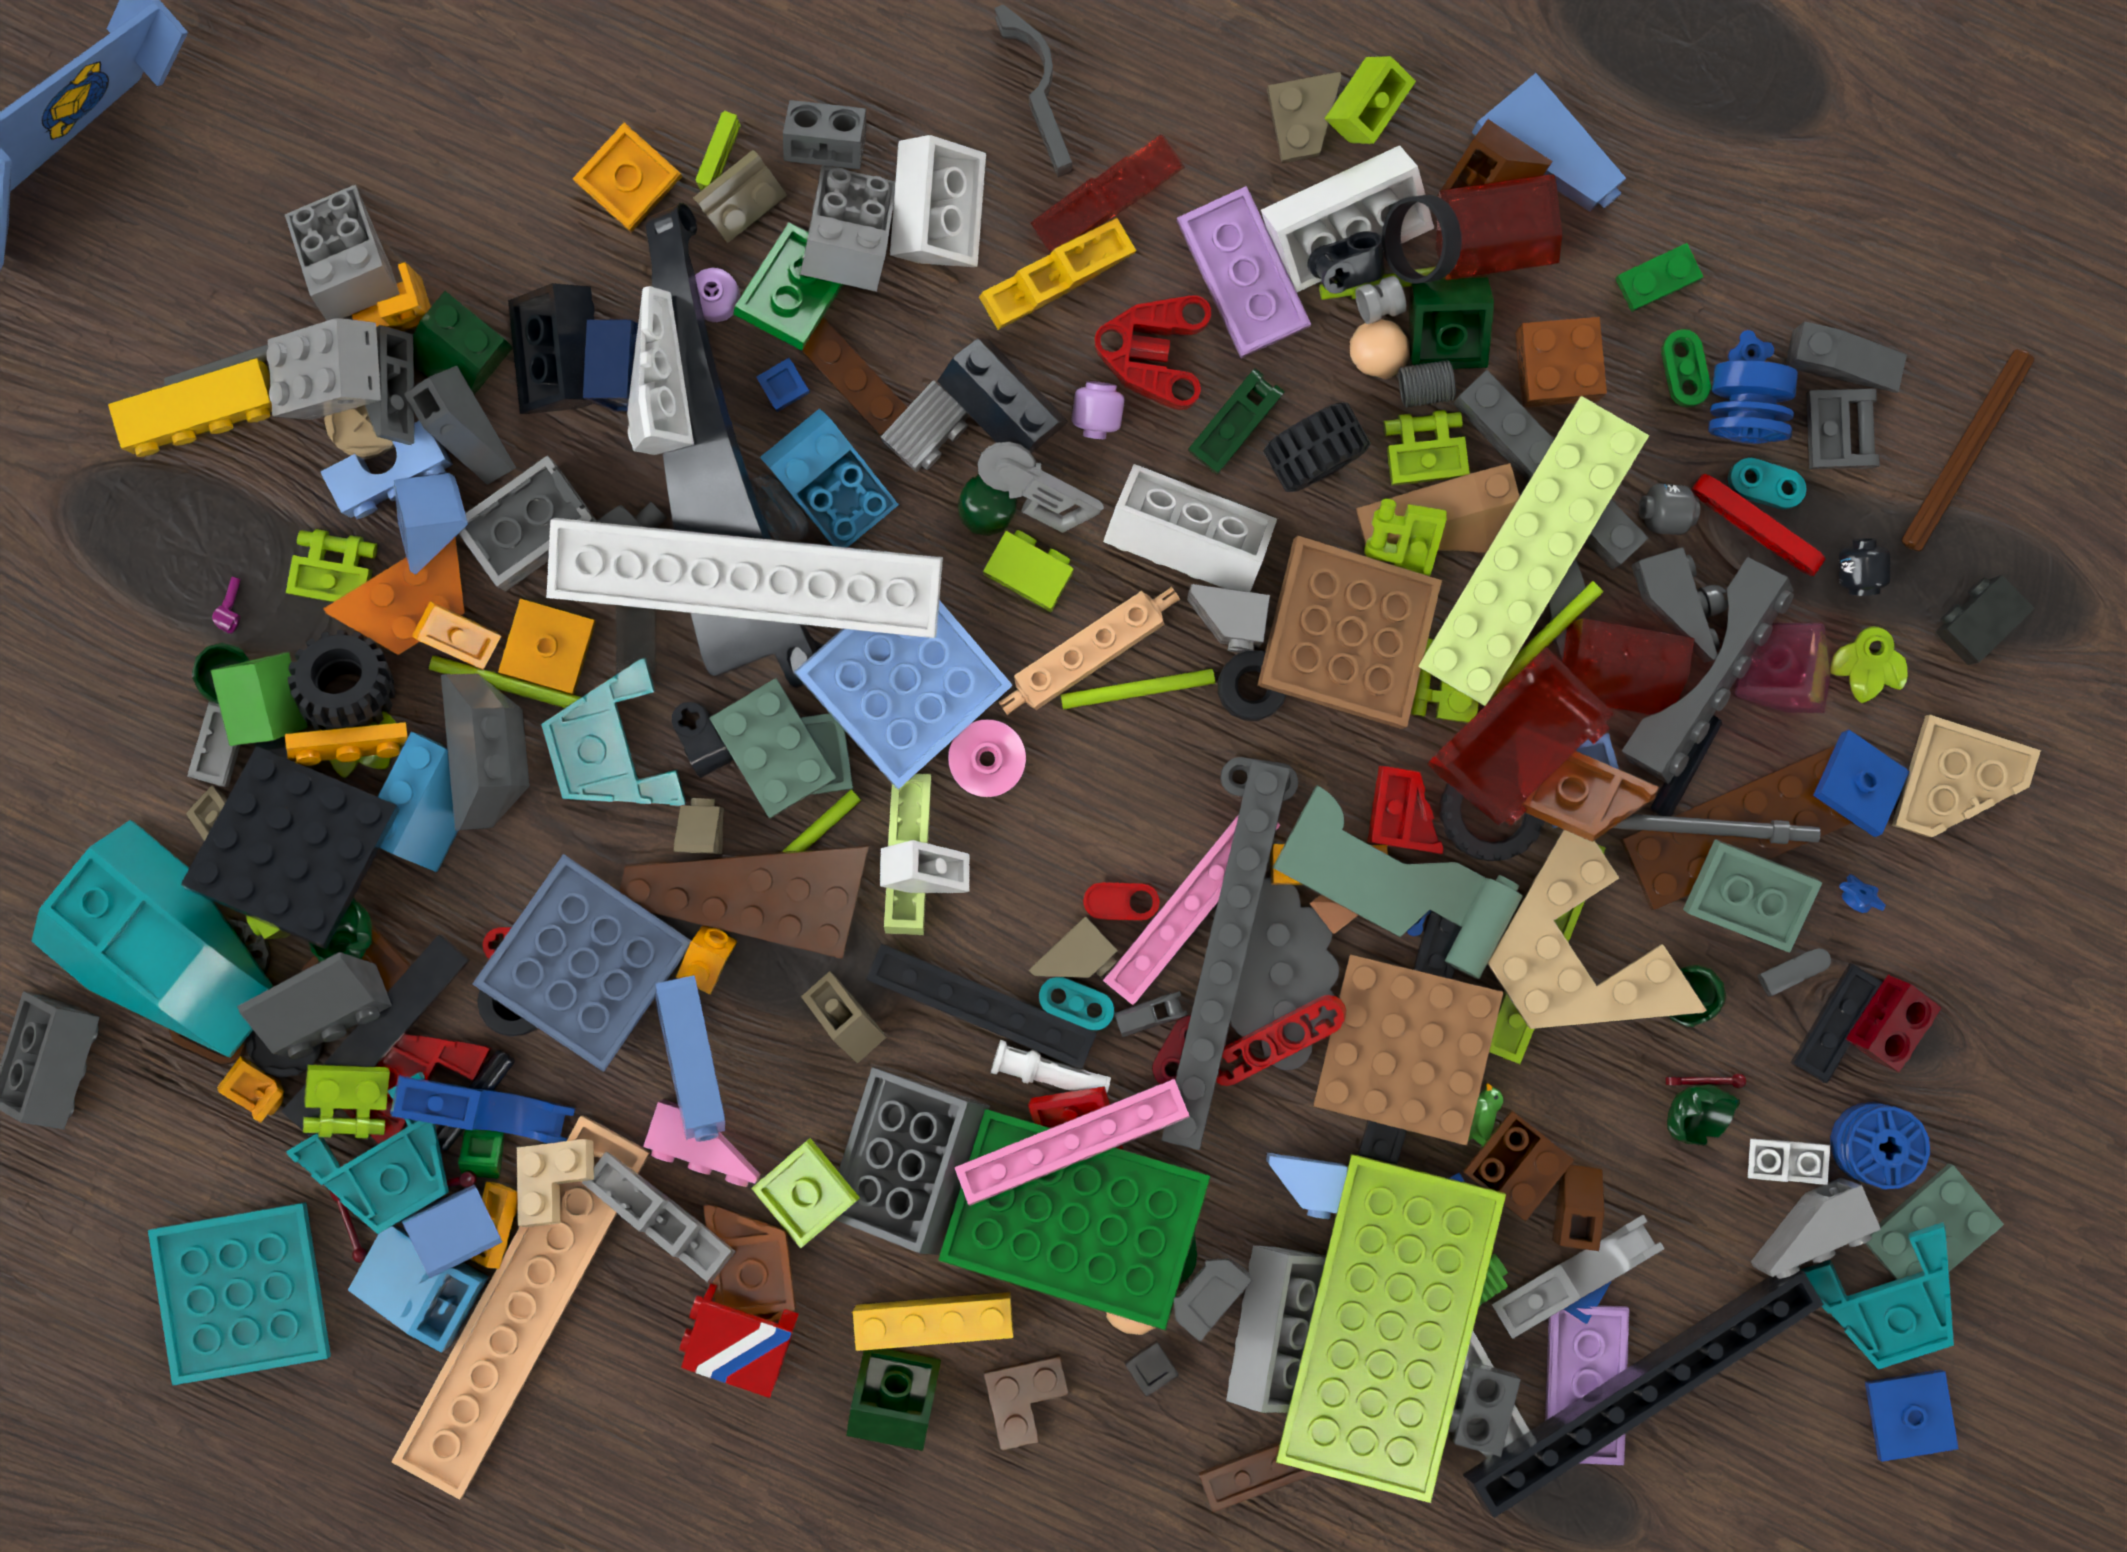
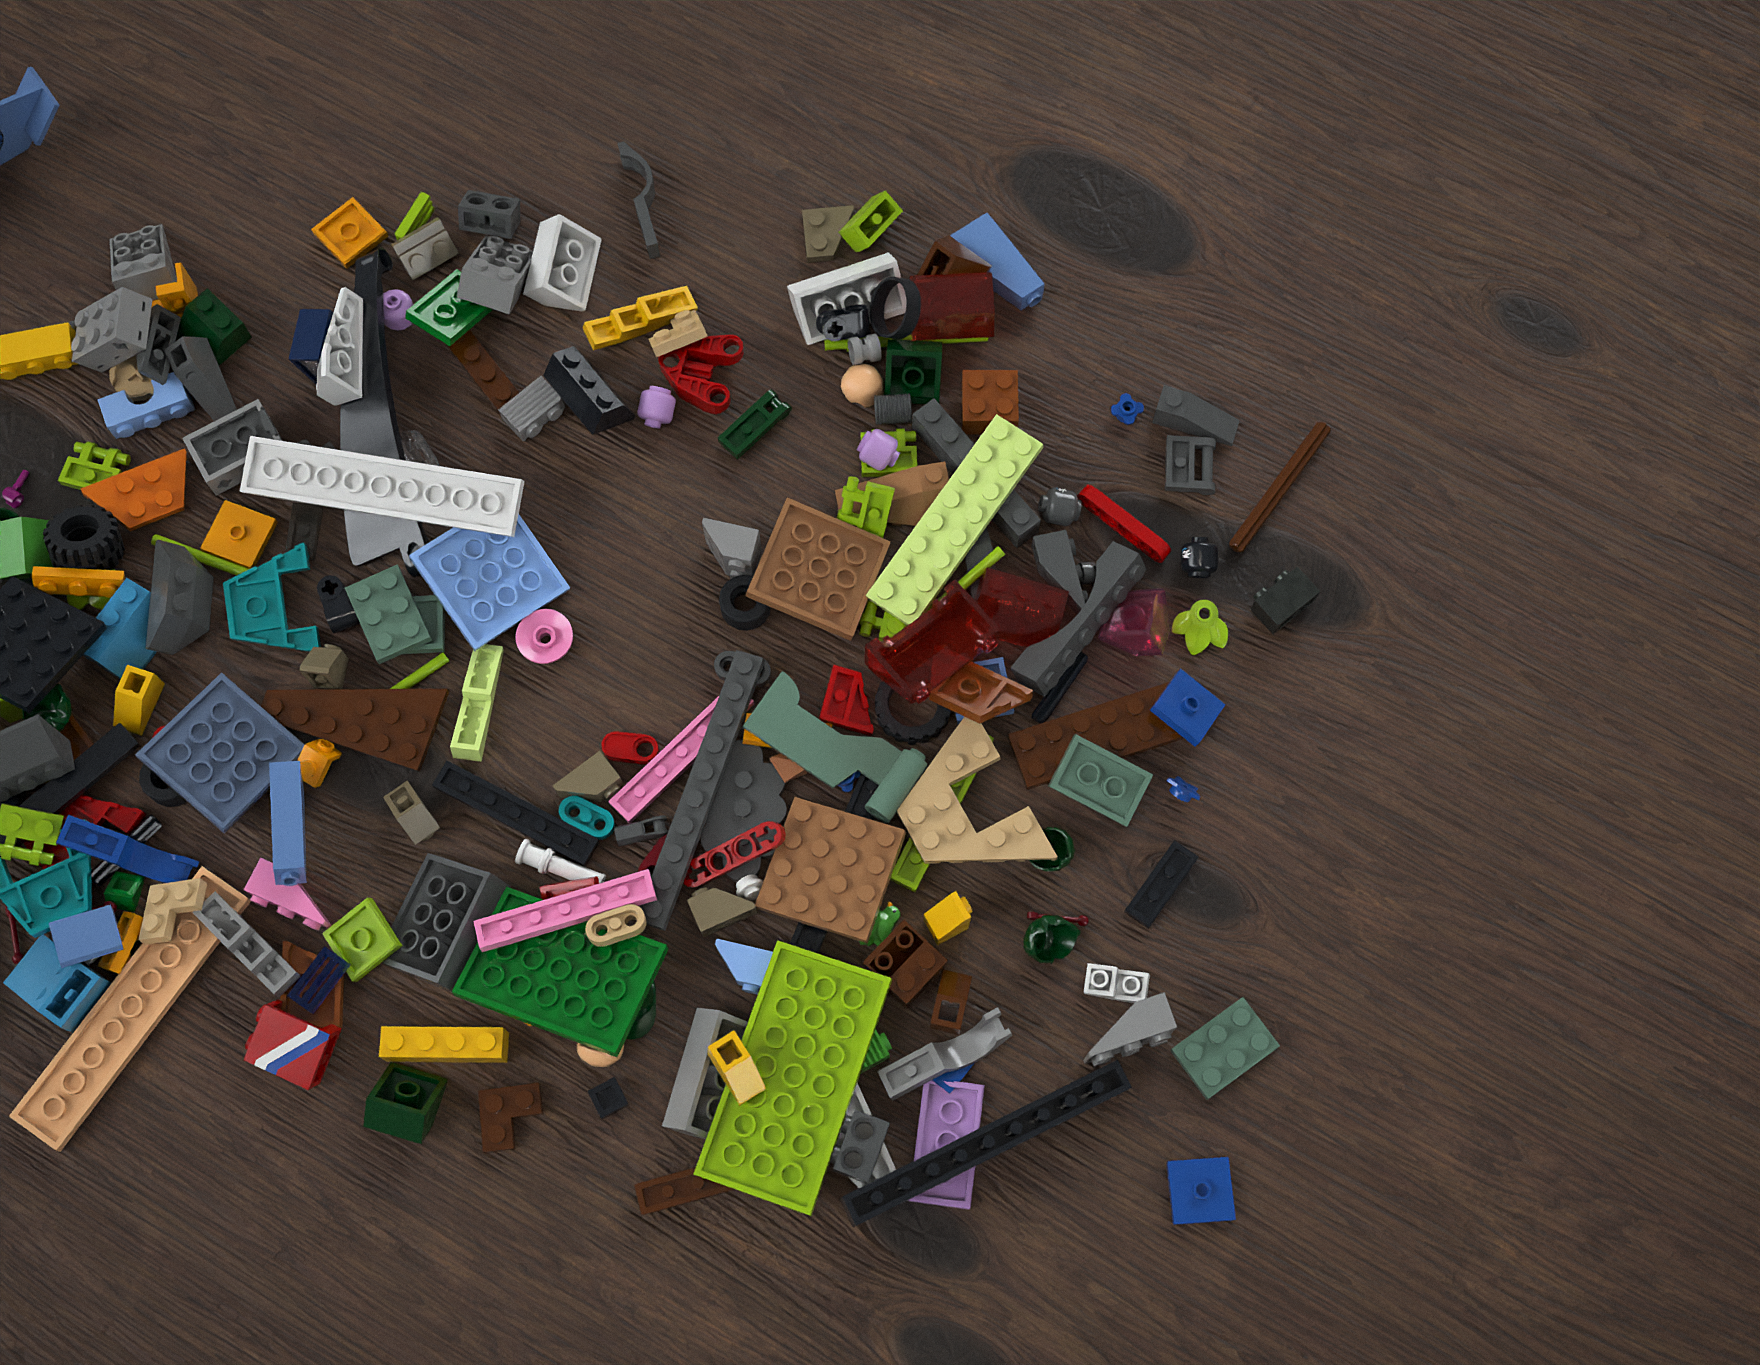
camera: 10 degrees right, 15 degrees down
(428, 516) = (165, 432): medium blue slope -> none
(452, 898) = (136, 698): none -> yellow slope
(456, 635) = (173, 518): light orange plate -> none
(550, 346) = (273, 335): black slope -> none
(776, 1224) = (327, 987): none -> clear blue tile
(783, 384) = (436, 373): blue plate -> none
(829, 480) = (459, 436): dark azure slope -> none
(924, 868) = (485, 706): white slope -> none
(984, 508) = (569, 465): dark green hair -> none
(1013, 469) = (587, 436): light grey piece -> none
(1029, 570) = (592, 510): lime brick -> none
(1088, 650) = (629, 570): light nougat plate -> none
(1108, 193) = (685, 268): clear red slope -> none
(1128, 299) = (686, 330): none -> tan plate
(1138, 688) = (662, 600): lime bar -> none
(1140, 1154) = (616, 923): none -> tan plate
(1190, 530) = (710, 491): white slope -> none
(1210, 1295) = (655, 1033): dark grey slope -> none
(1243, 272) = (772, 329): lavender tile -> none
(1263, 1112) = (718, 909): none -> dark tan slope
(1302, 1079) = (749, 887): none -> white plate
(1316, 447) = (806, 439): black tyre -> none
(1319, 1330) = (736, 1067): none -> yellow slope
(1416, 453) = (878, 449): none -> lavender head
(1568, 1100) = (948, 918): none -> yellow slope
(1659, 277) = (1066, 355): green plate -> none
(1686, 369) = (1080, 416): green plate -> none
(1752, 406) = (1123, 435): blue wheel -> none
(1768, 483) = (1132, 499): teal plate -> none
(1776, 831) = (1121, 734): dark grey bar -> none
(1794, 971) = (1130, 841): dark grey bar -> none
(1857, 1141) = (1171, 980): blue wheel -> none
(1893, 1023) = (1197, 877): dark red brick -> none
(1900, 1316) = (1194, 1107): teal wing -> none
(1959, 776) = (1262, 710): tan plate -> none

